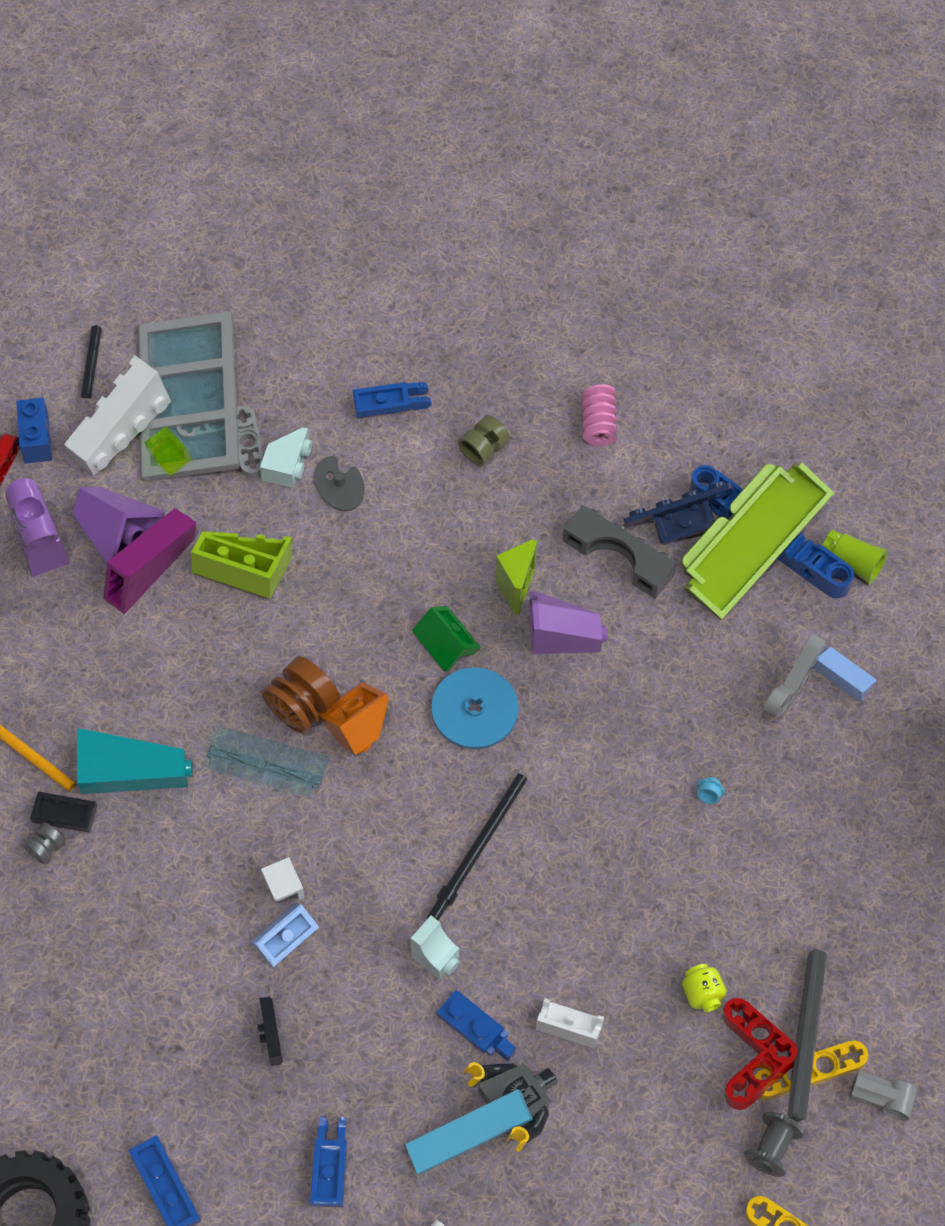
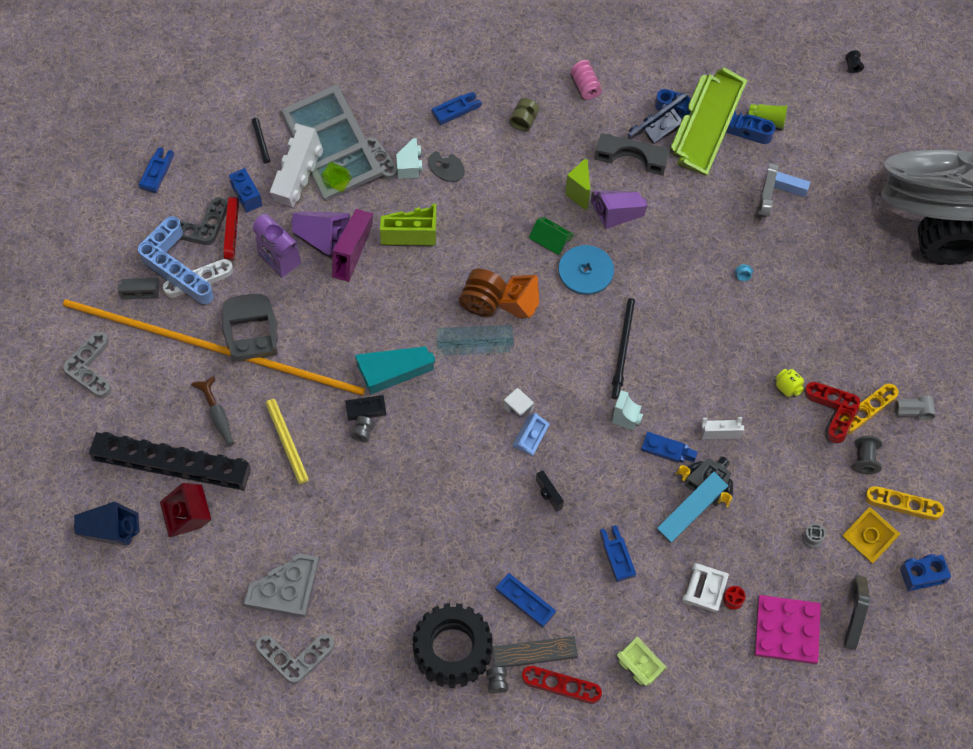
camera: 20 degrees left, 0 degrees up
(807, 1035) = (860, 388): dark grey axle -> none

